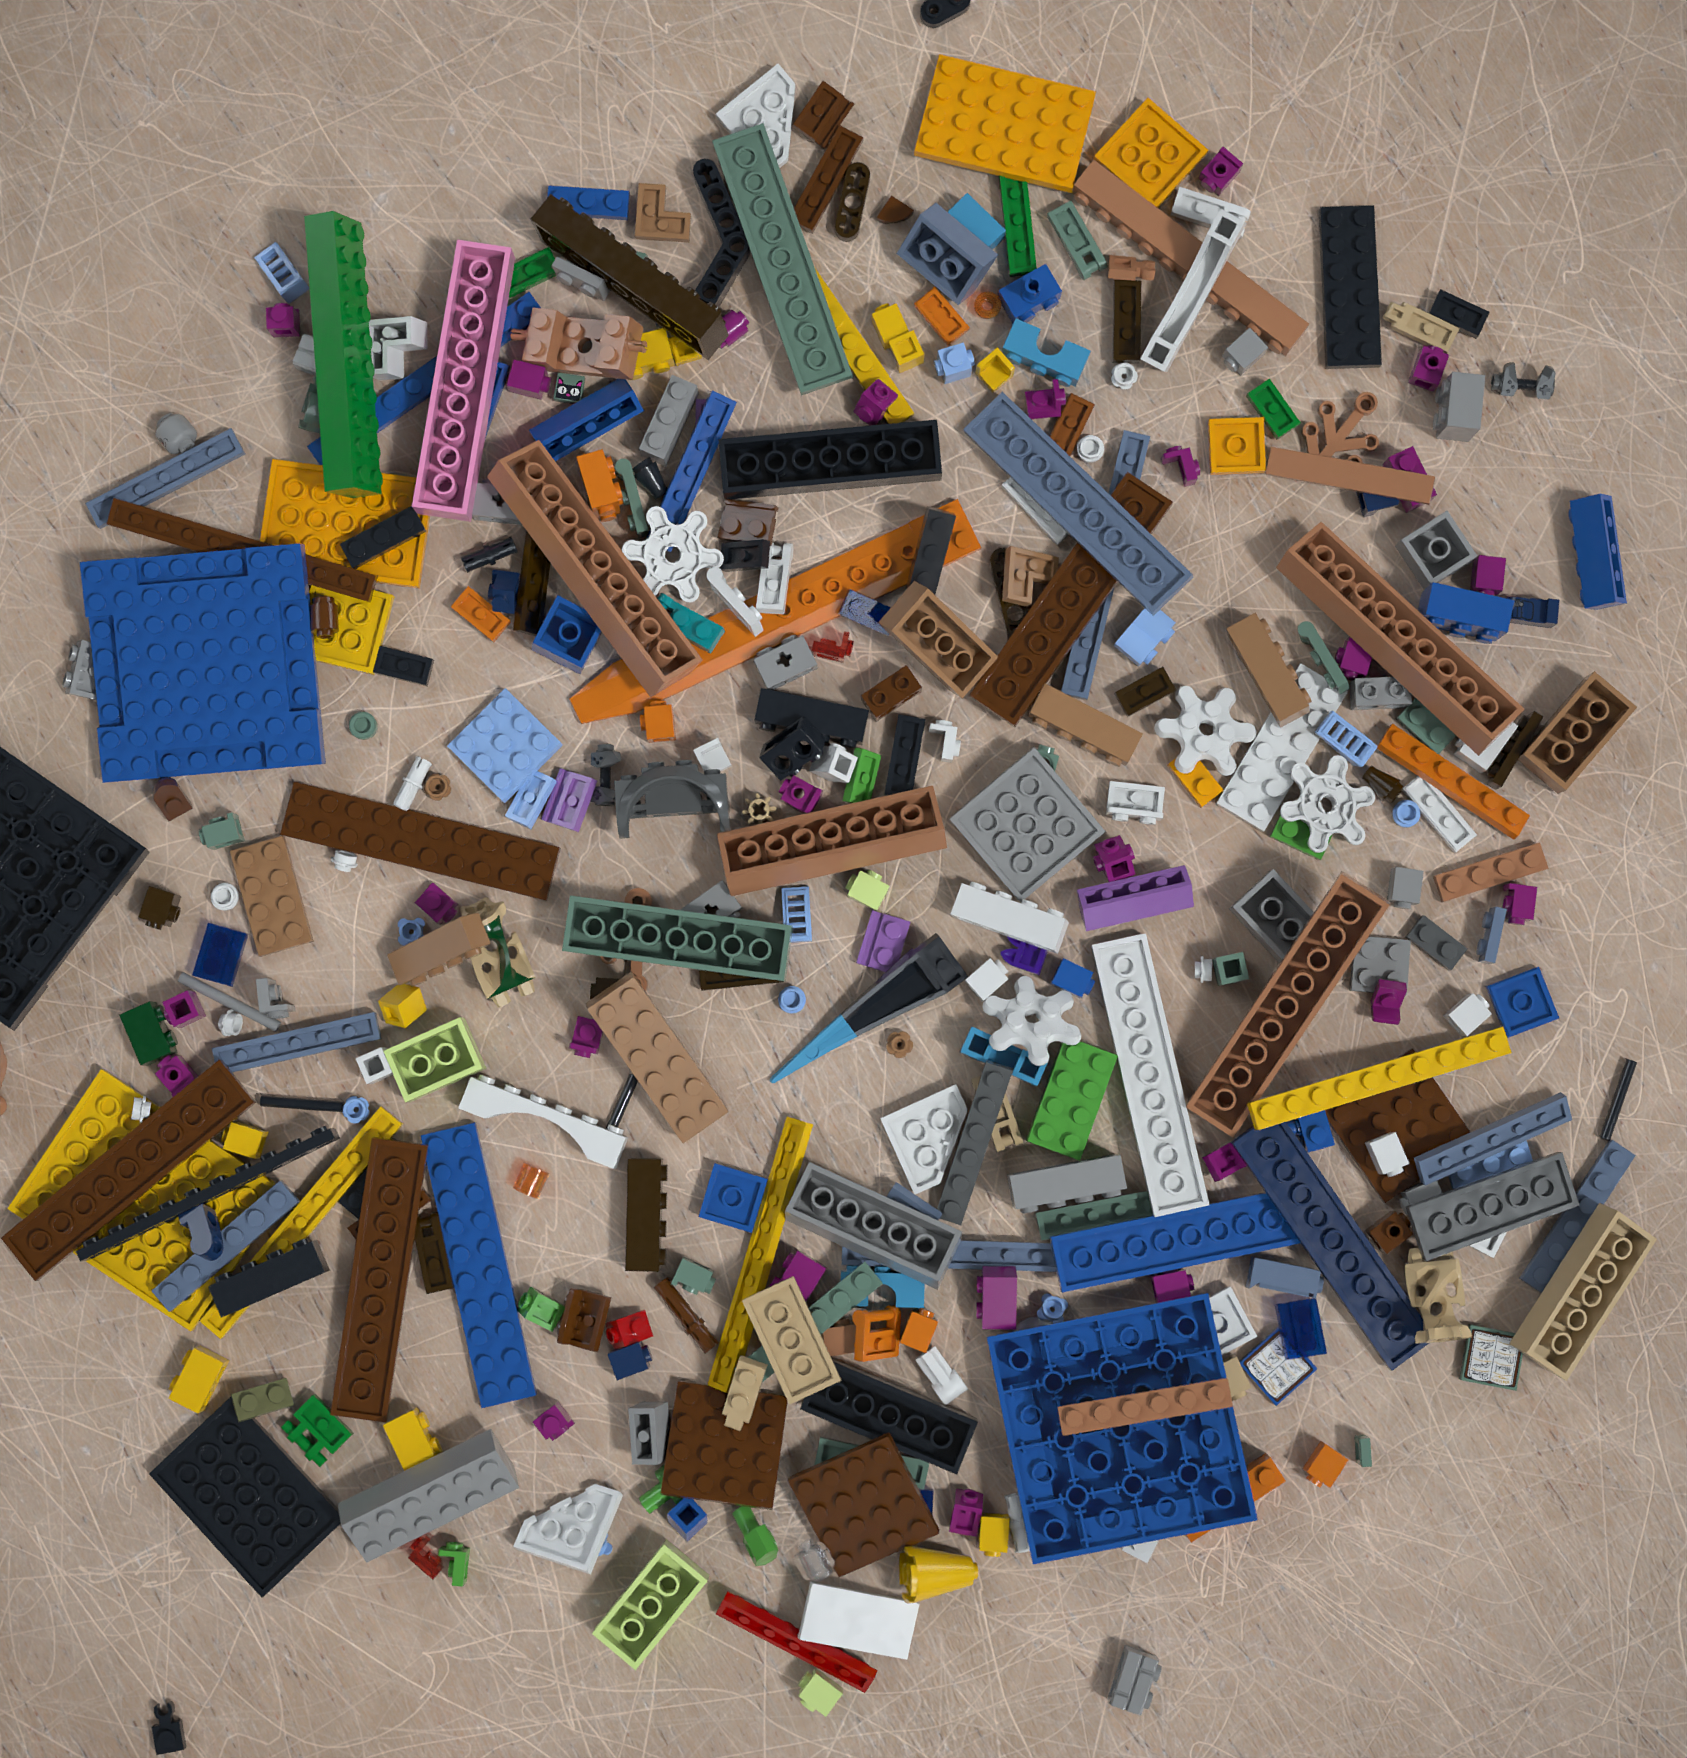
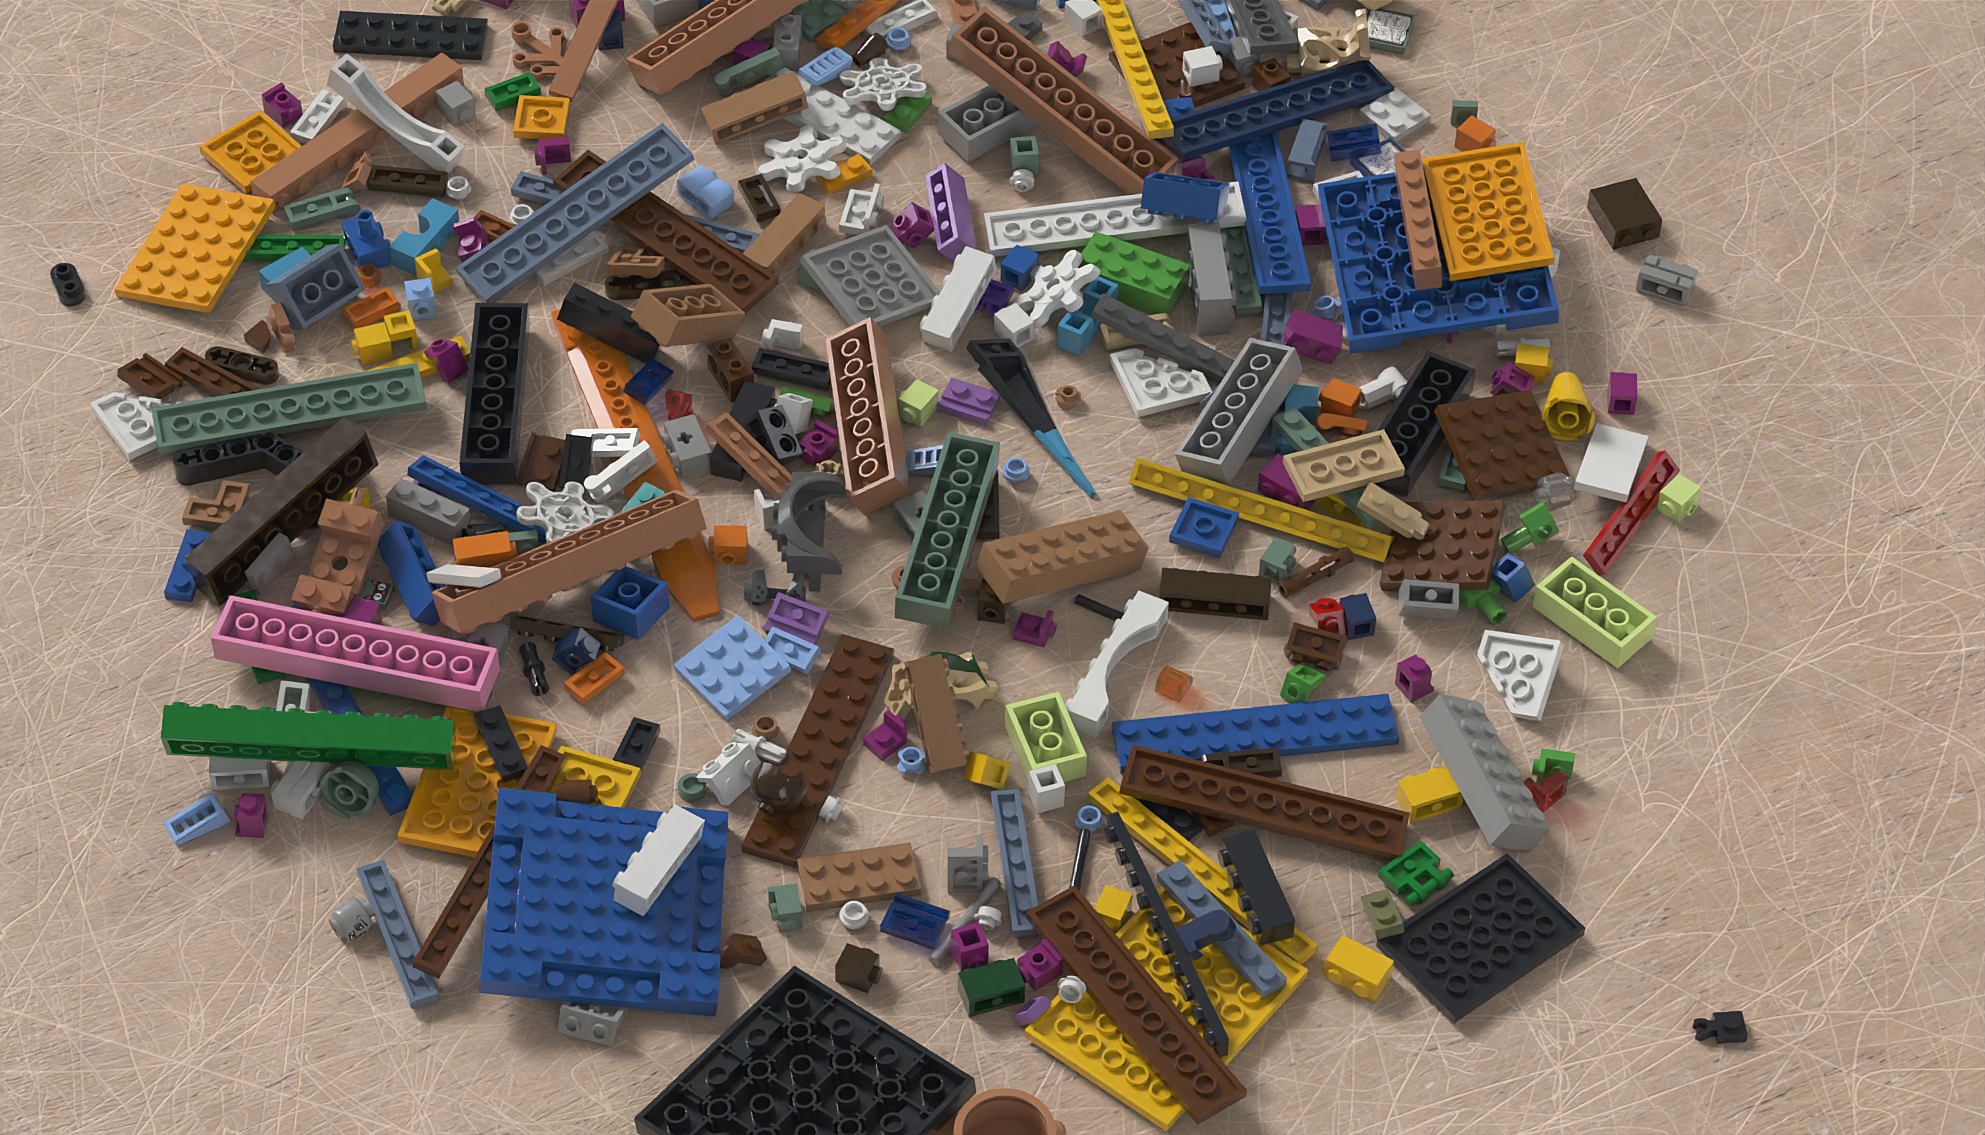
camera: 90 degrees left, 35 degrees down
(124, 1074) = (1031, 1010): none -> medium lavender tile
(233, 706) = (658, 859): none -> white brick
(339, 807) = (776, 790): none -> dark brown cylinder
(376, 759) = (730, 771): none -> white bracket
(550, 467) = (464, 575): none -> white tile
(758, 731) = (749, 454): none -> nougat plate
(901, 230) = (279, 324): none -> nougat plate
(963, 1631) = (1622, 393): none -> magenta brick
(1157, 1149) = (1184, 197): none -> blue brick
(1163, 1484) = (1487, 211): none -> light orange plate
(1226, 1633) = (1624, 213): none -> dark brown brick
(1356, 1372) = (1395, 115): none -> white plate

